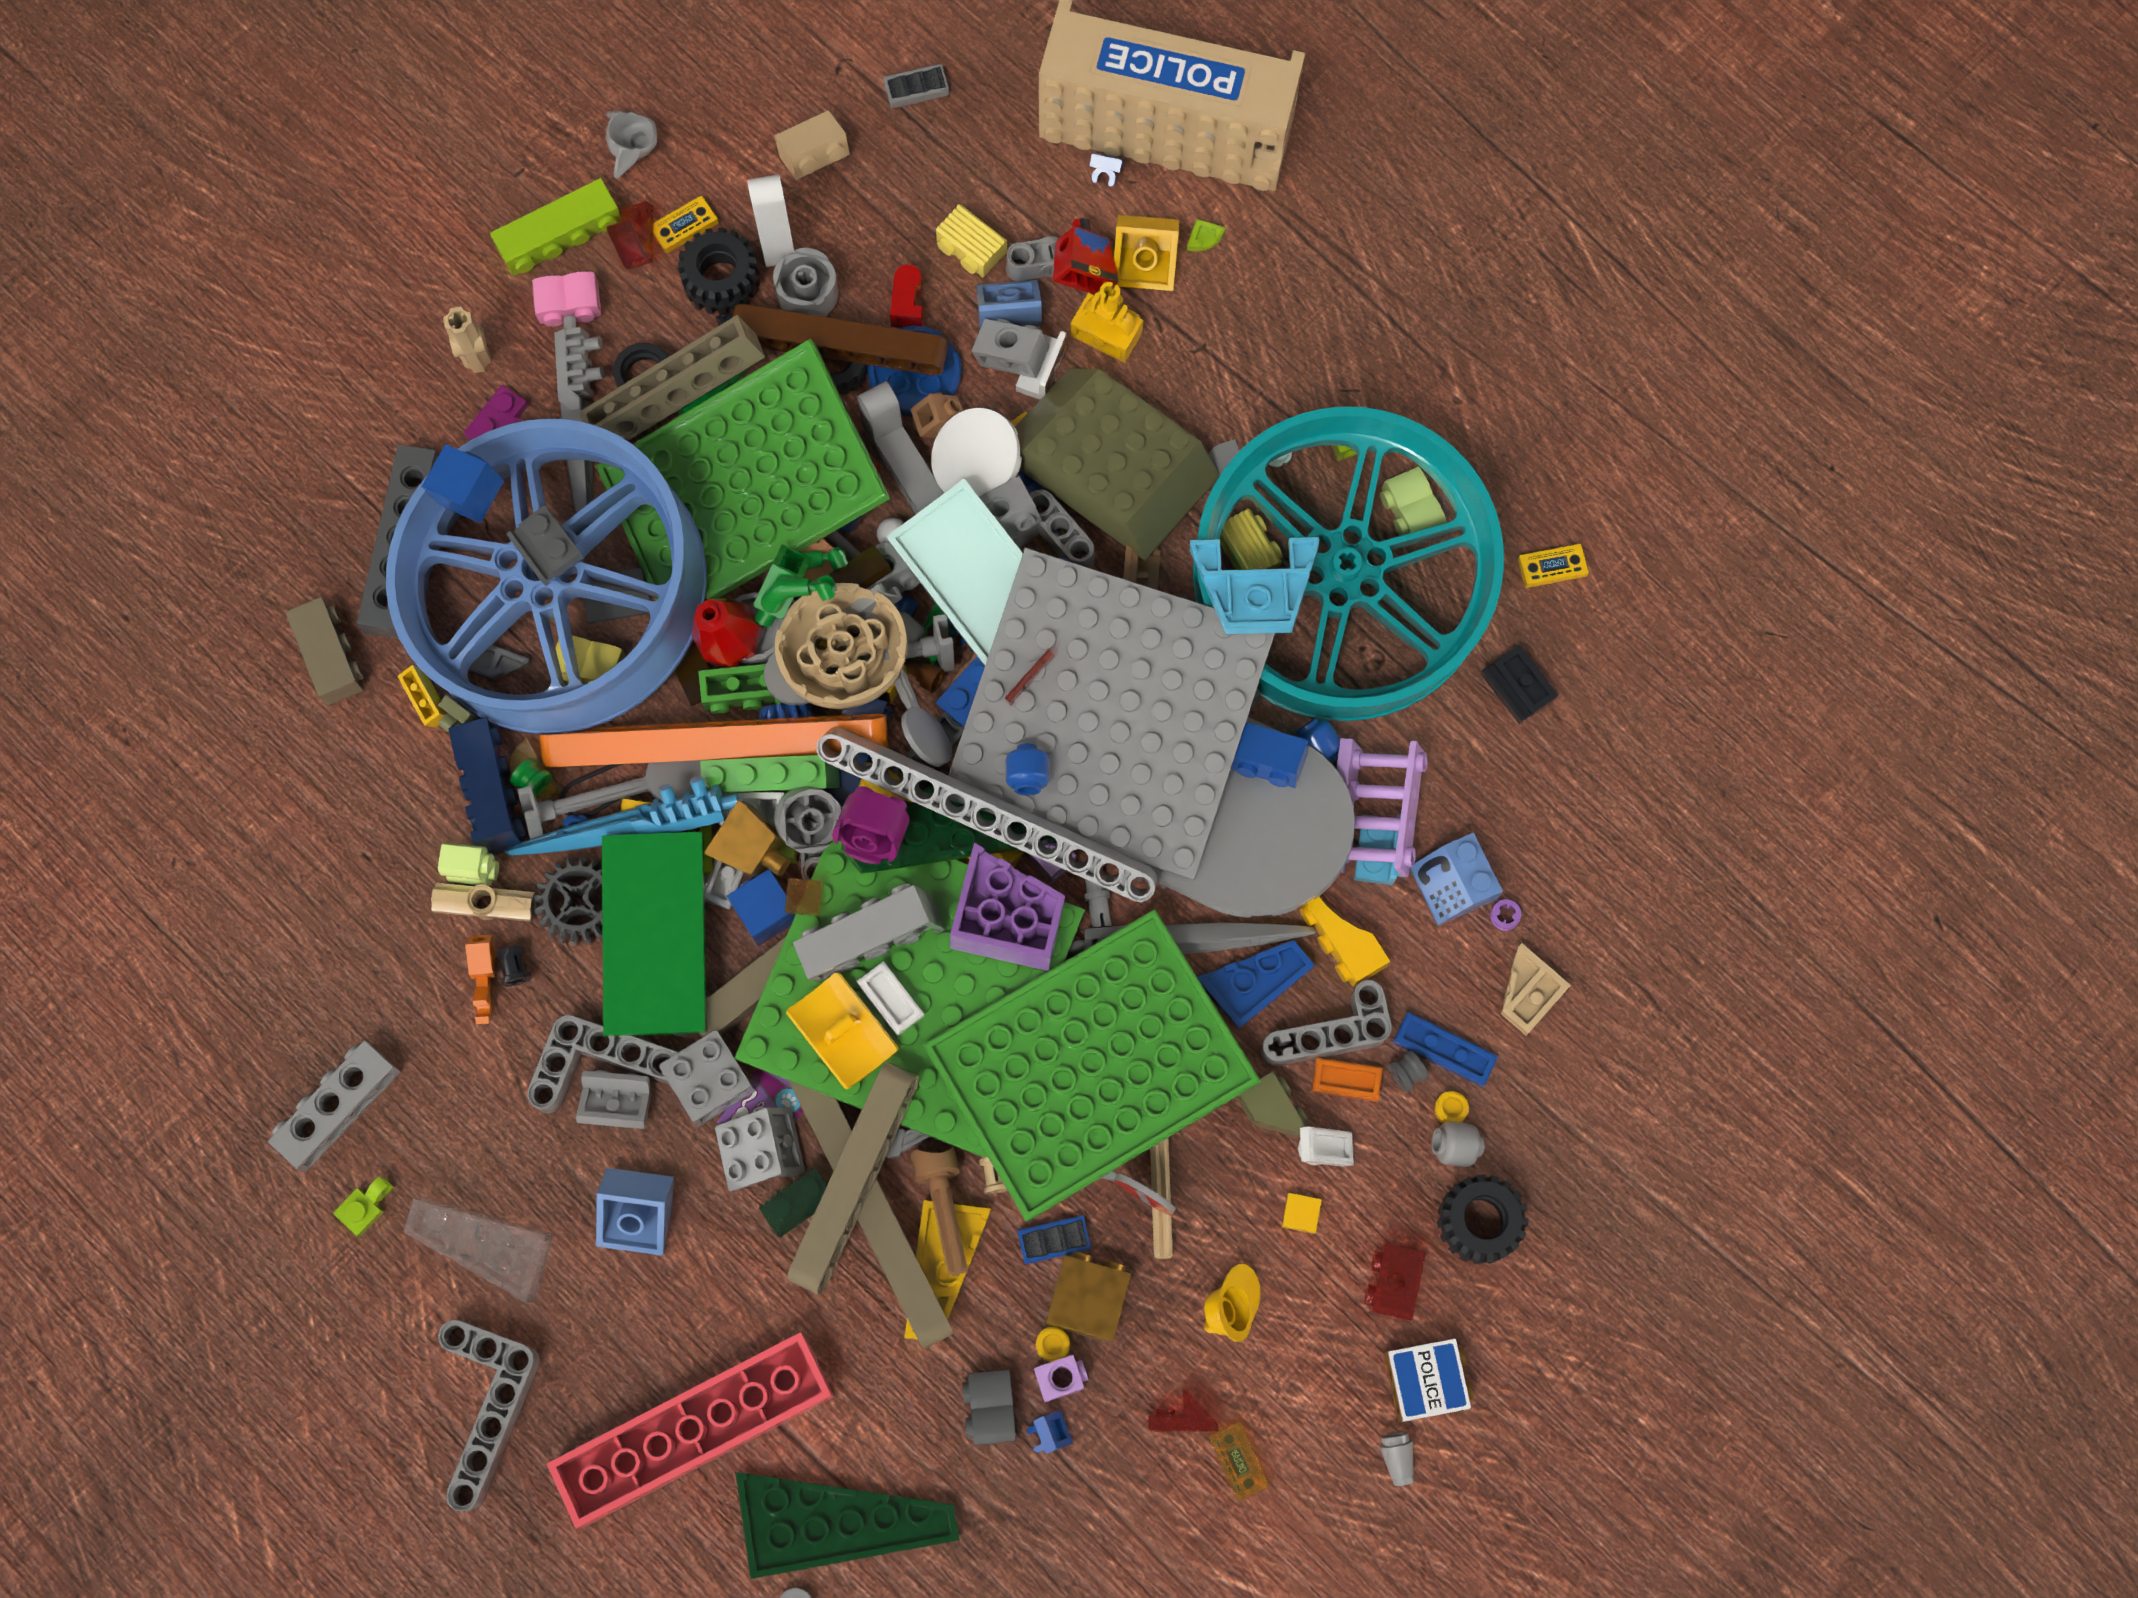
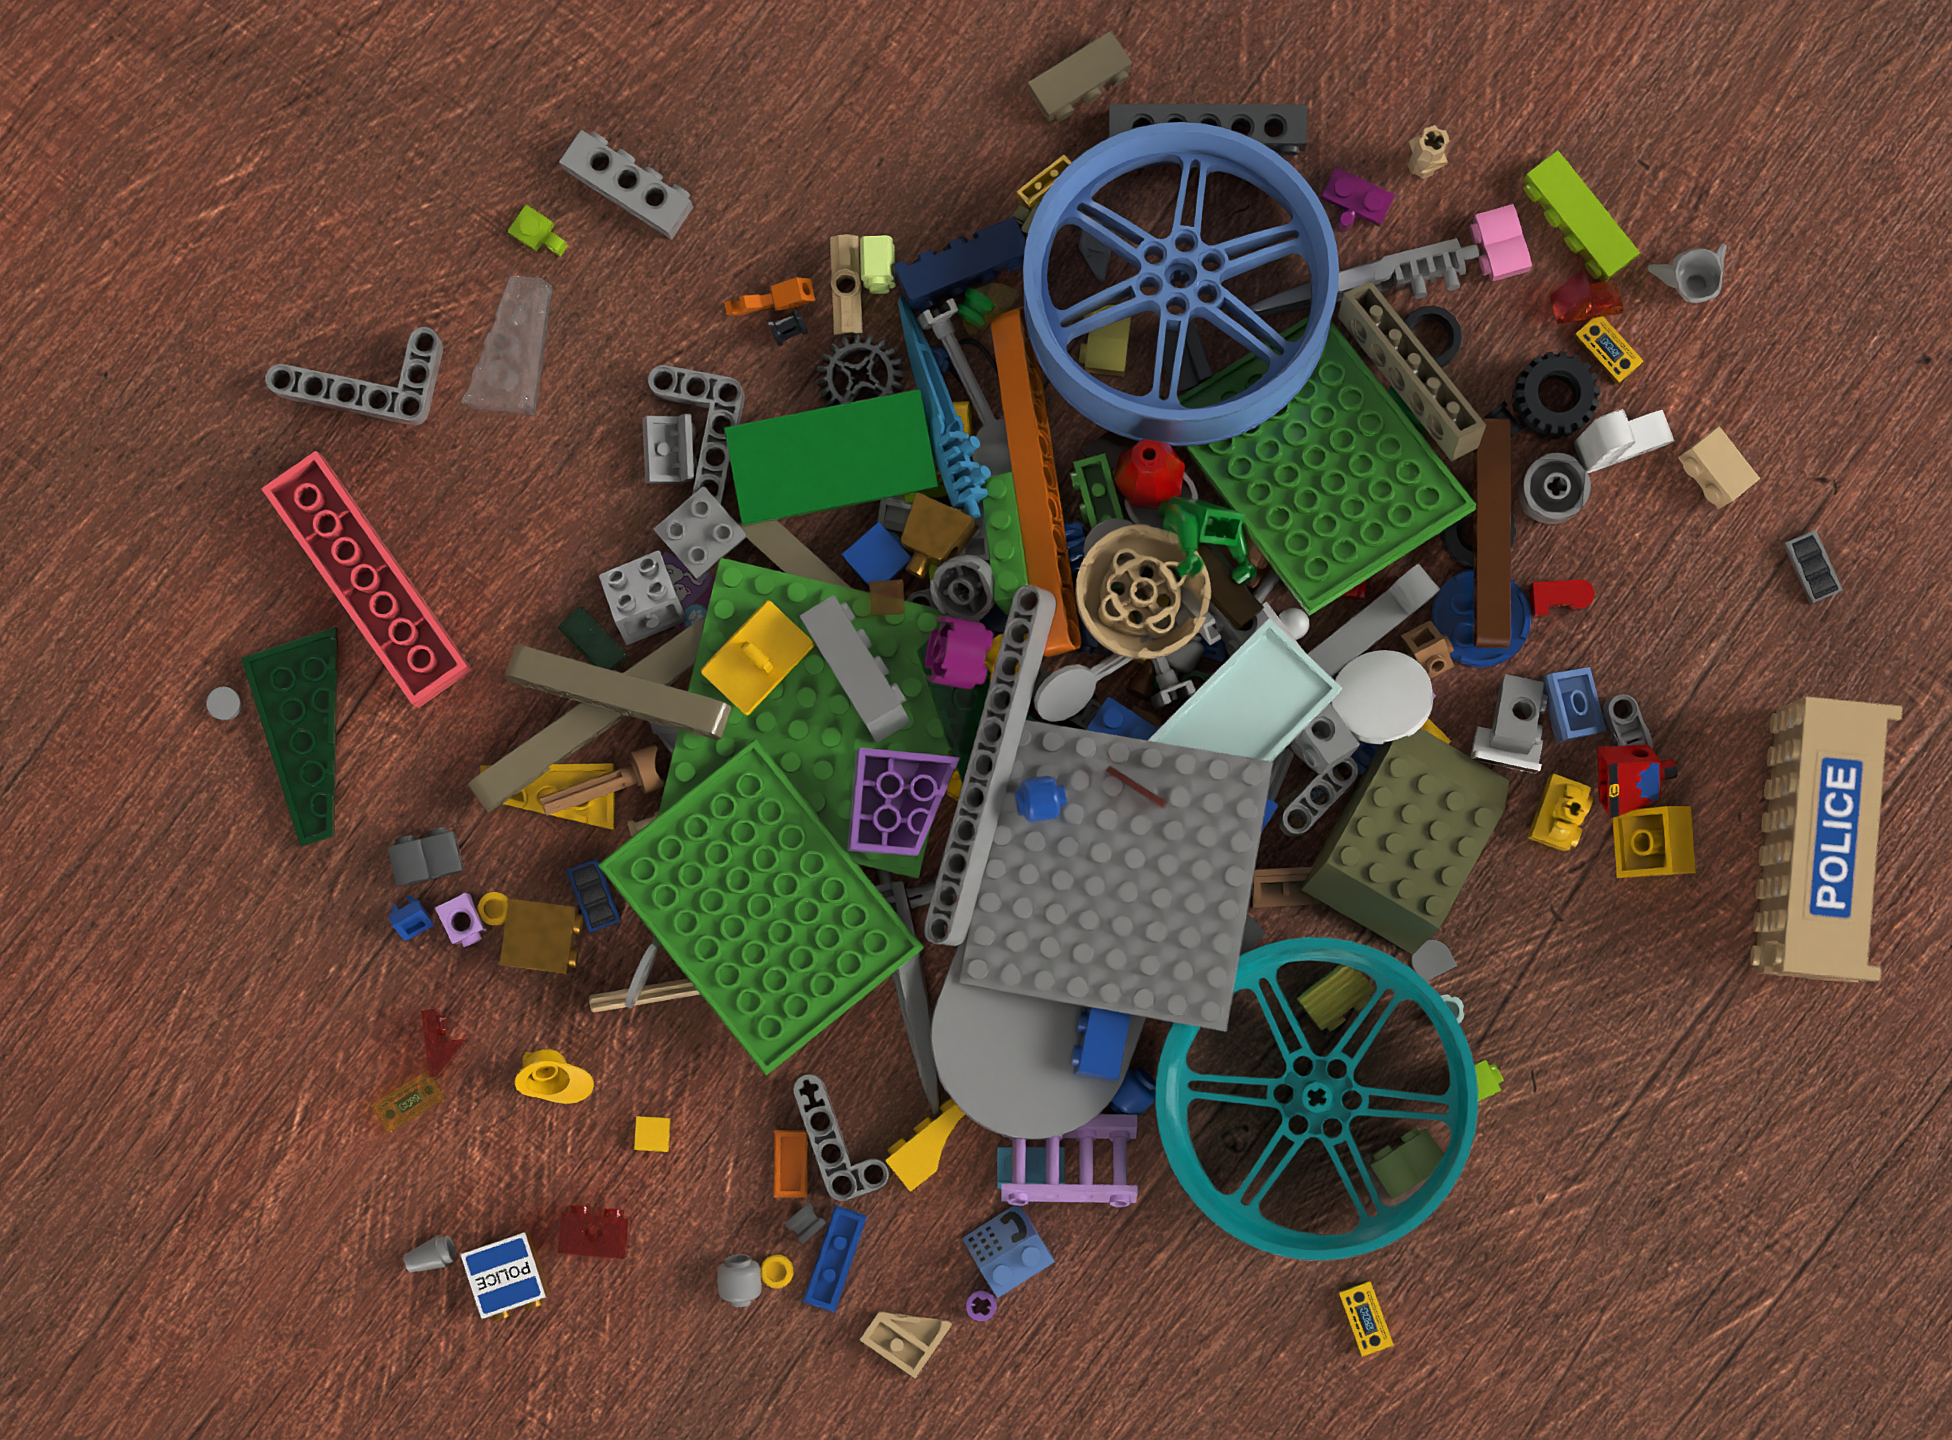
camera: 90 degrees right, 10 degrees up
(463, 483) = (1250, 183): blue head -> none
(545, 545) = (1197, 277): dark grey plate -> none
(634, 1211) = (566, 487): medium blue slope -> none
(890, 998) = (797, 699): white tile -> none
(970, 241) = (1636, 653): light yellow brick -> none
(1106, 164) = (1751, 786): tile -> none
(1205, 236) = (1686, 903): lime tile -> none
(1254, 983) = (875, 1060): blue wing -> none
(1256, 598) = (1249, 1005): medium azure wing -> none
(1271, 1108) = (749, 1091): olive slope -> none
(1325, 1146) = (716, 1149): white tile -> none
(1505, 1202) = (642, 1329): black tyre -> none
(1519, 684) = (1227, 1295): black plate -> none

